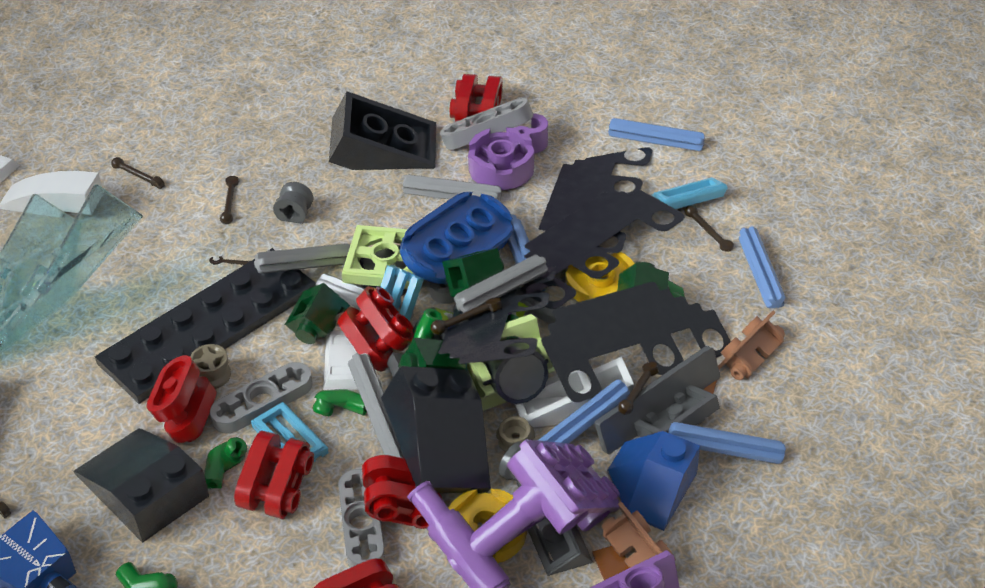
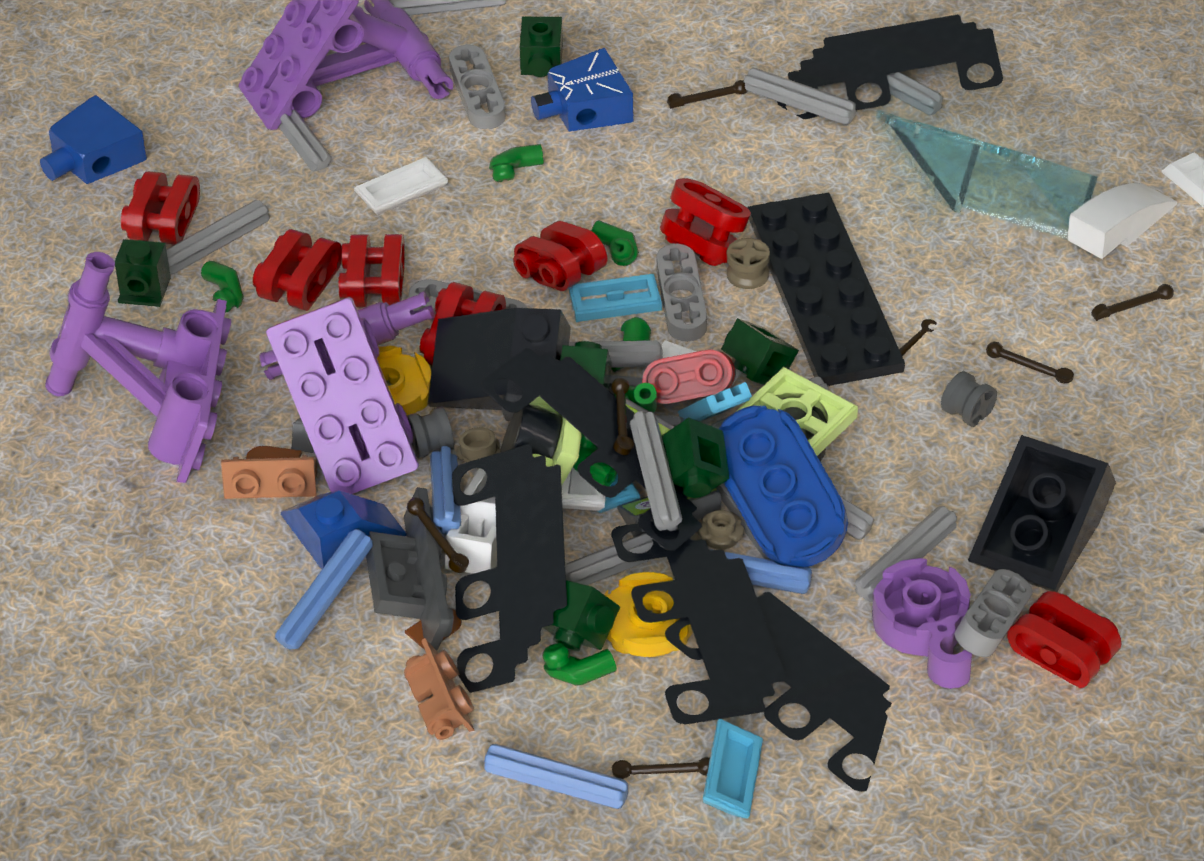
camera: 120 degrees right, 0 degrees up
(145, 482) = (625, 178): black slope -> none
(301, 258) = (854, 364): light grey axle -> none
(656, 134) = (877, 802): medium blue axle -> none

